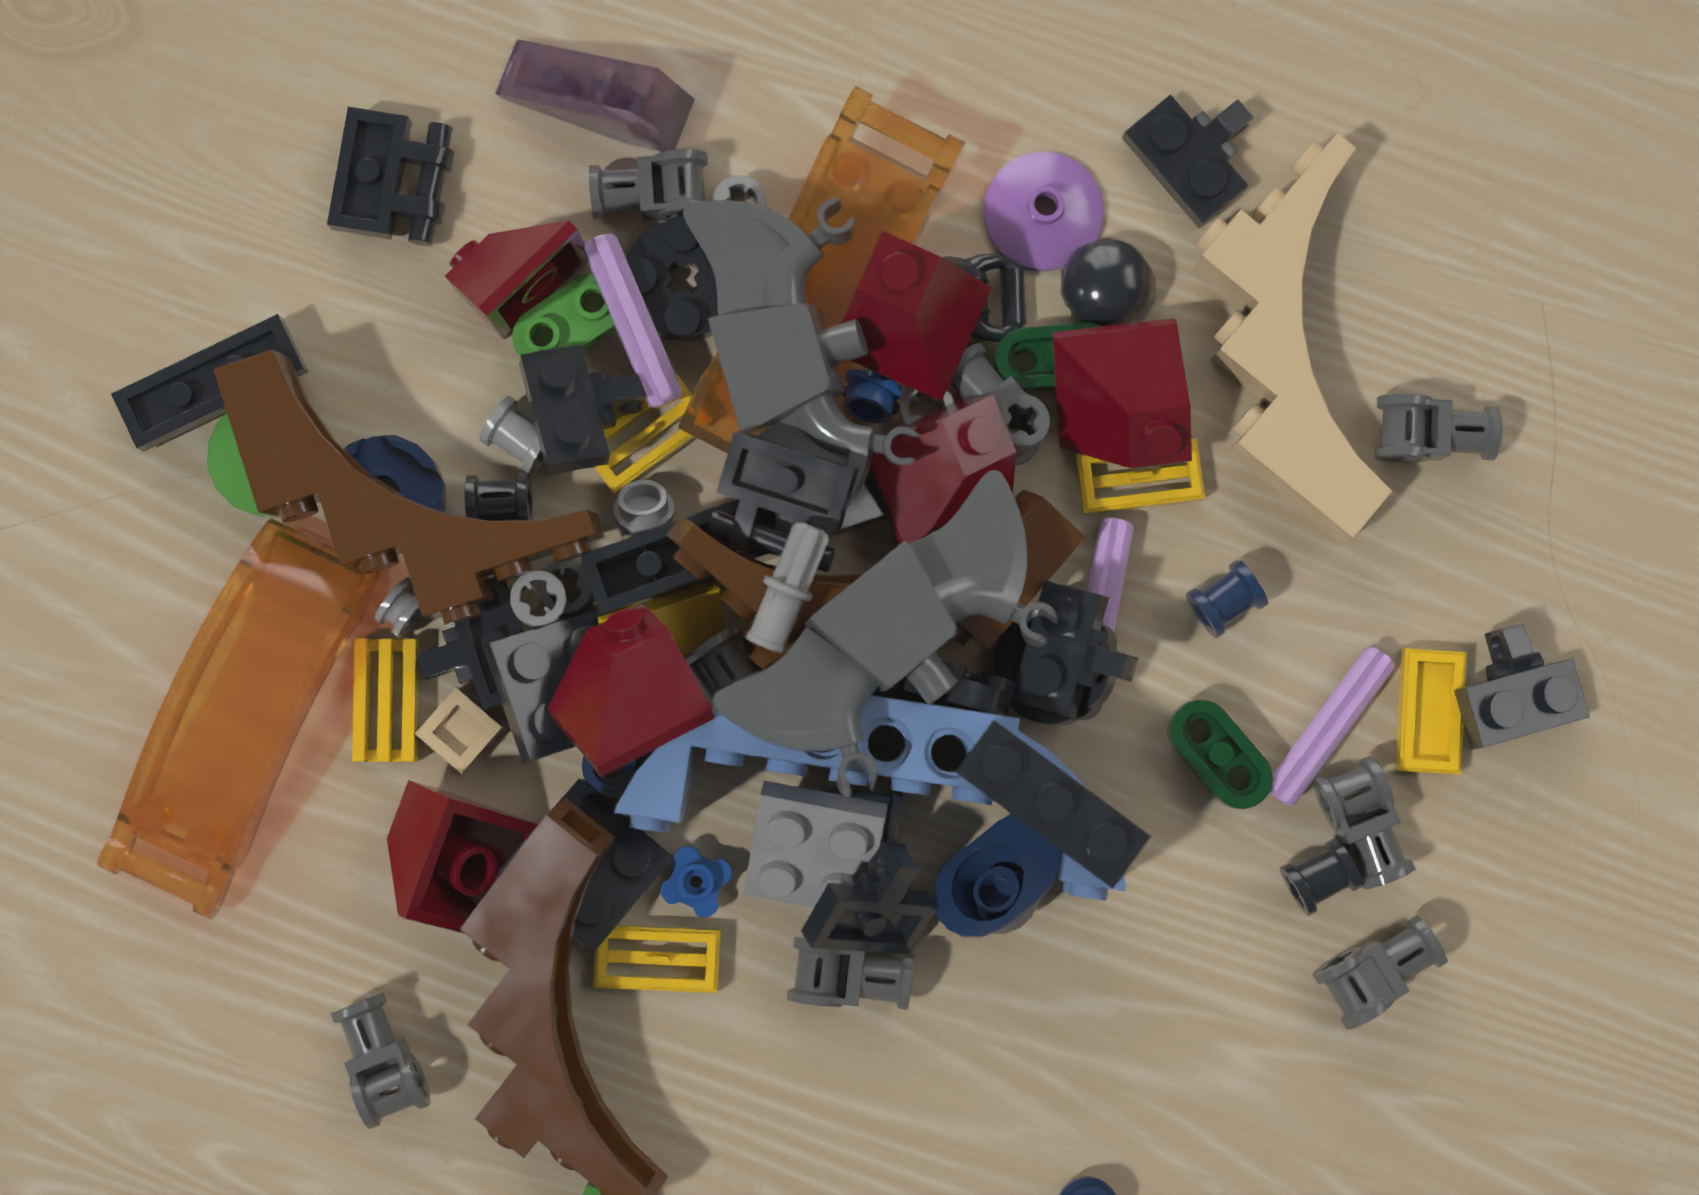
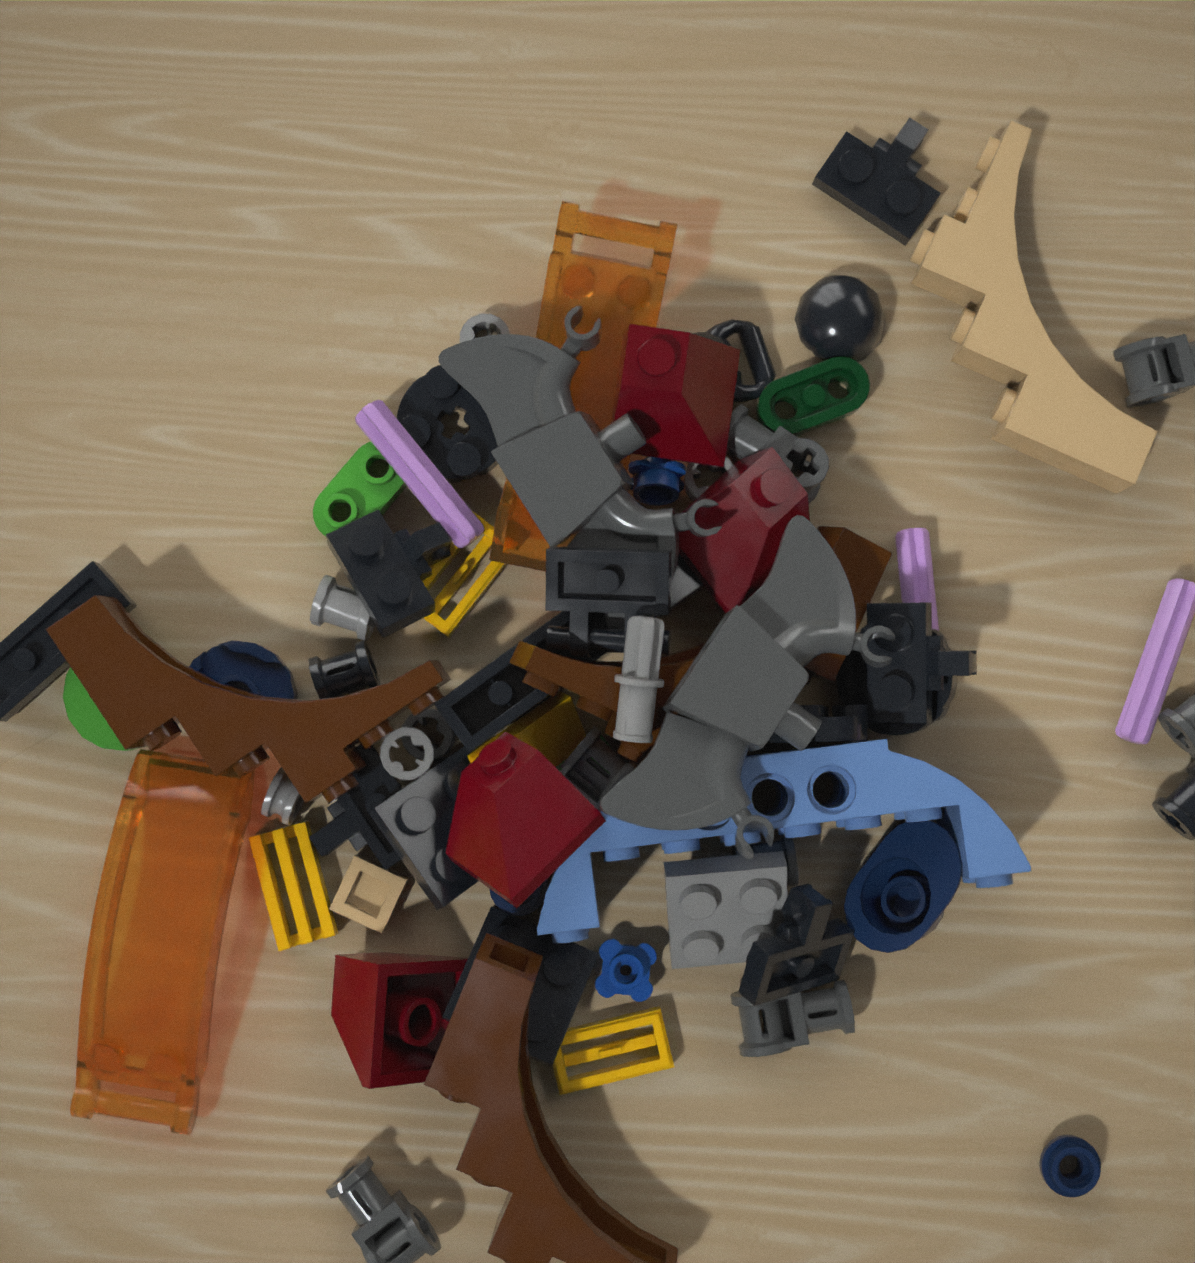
camera: 10 degrees left, 0 degrees up
(371, 175) = (142, 410): black plate -> none
(515, 270) = (299, 458): dark red slope -> none
(598, 94) = (329, 277): slope -> none
(643, 507) = (478, 642): light grey plate -> none
(651, 186) = (400, 348): dark grey connector -> none
(1037, 239) = (753, 294): medium lavender dish -> none
(1052, 804) = (942, 810): black plate -> none
(1089, 483) = (874, 504): yellow tile -> none
(1123, 393) = (887, 413): dark red slope -> none
(1219, 753) = (1065, 714): dark green plate -> none
(1227, 598) = (1032, 572): dark blue bush -> none

